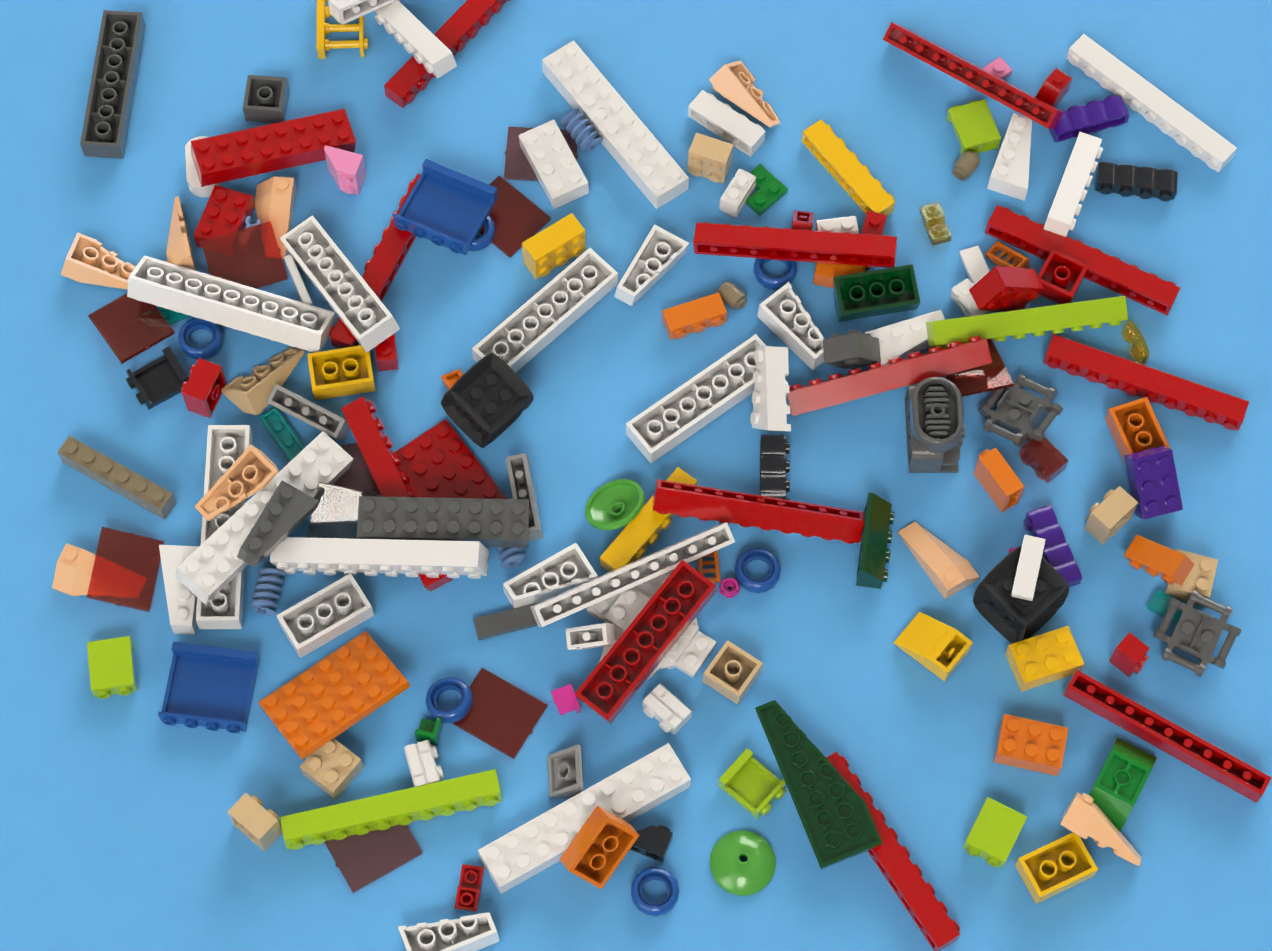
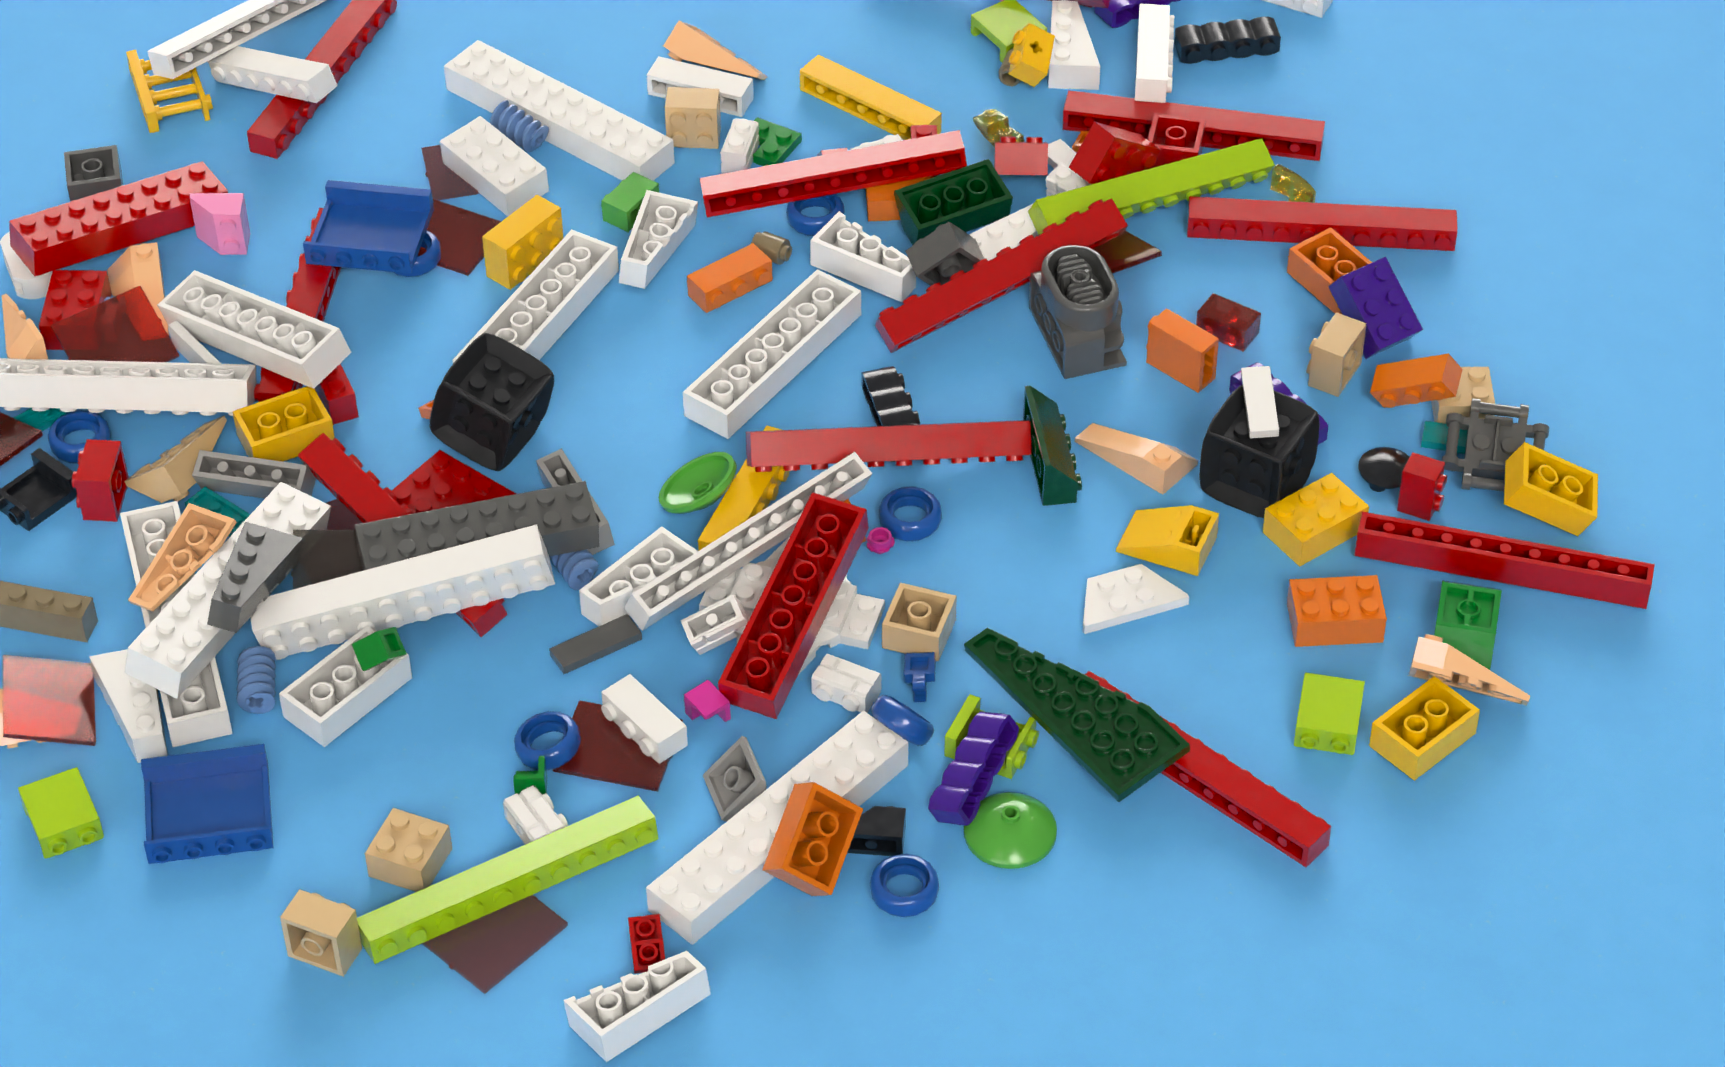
camera: 15 degrees left, 20 degrees down
(334, 694) = (385, 767): orange plate -> none
(351, 601) = (379, 648): none -> green panel
(518, 702) = (644, 719): none -> white brick
(639, 223) = (623, 203): none -> bright green brick
(693, 757) = (902, 720): none -> blue wheel
(721, 711) = (918, 670): none -> blue plate
(731, 810) = (972, 771): none -> dark purple brick
(770, 389) = (858, 317): white wedge -> none
(888, 686) = (1128, 597): none -> white wing
(939, 263) = (1021, 157): none -> brick
(979, 164) = (1031, 54): none -> yellow brick
(1020, 412) = (1181, 281): dark grey brick -> none
(1113, 622) = (1383, 467): none -> black dish
(1222, 686) = (1551, 489): none -> yellow brick

